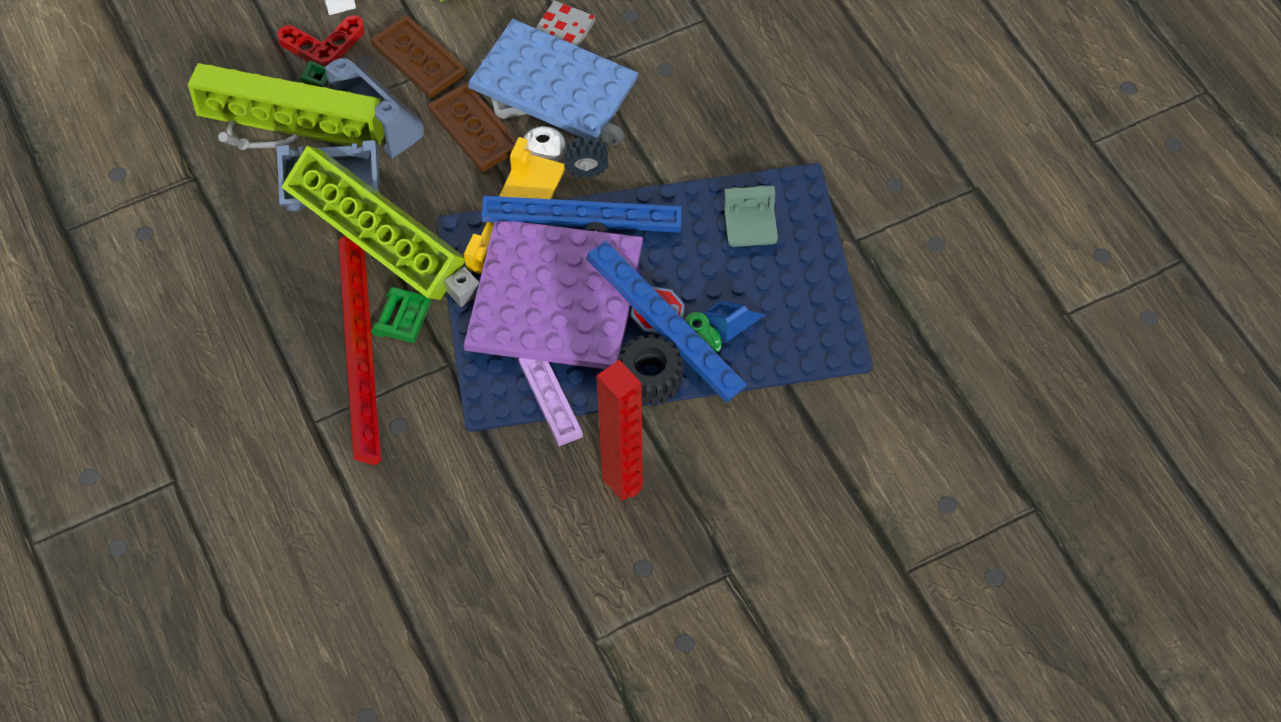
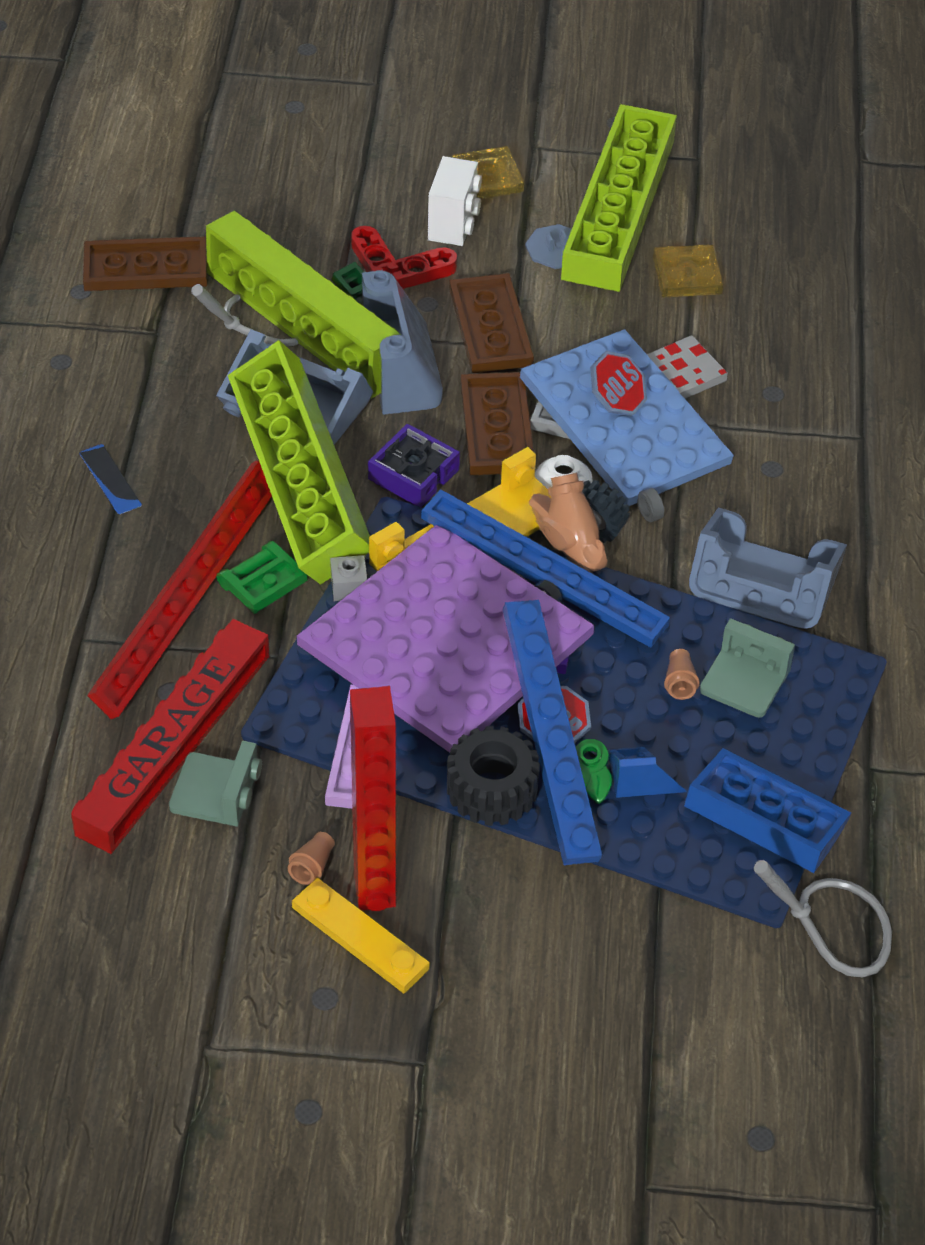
camera: 30 degrees right, 10 degrees down
(150, 131) = (144, 263): none -> reddish brown plate
(245, 300) = (110, 479): none -> black sticker
(426, 455) = (169, 736): none -> red brick
(444, 185) = (413, 465): none -> piece
(480, 472) = (216, 786): none -> sand green bracket
(542, 61) = (618, 383): none -> piece
(573, 487) = (311, 858): none -> nougat cone
(578, 175) = (570, 522): none -> nougat animal
(636, 516) = (360, 935): none -> yellow plate
(713, 242) = (681, 676): none -> nougat cone
(715, 147) = (763, 578): none -> sand blue windscreen
(821, 301) = (767, 809): none -> blue slope
(879, 352) = (801, 910): none -> light grey piece

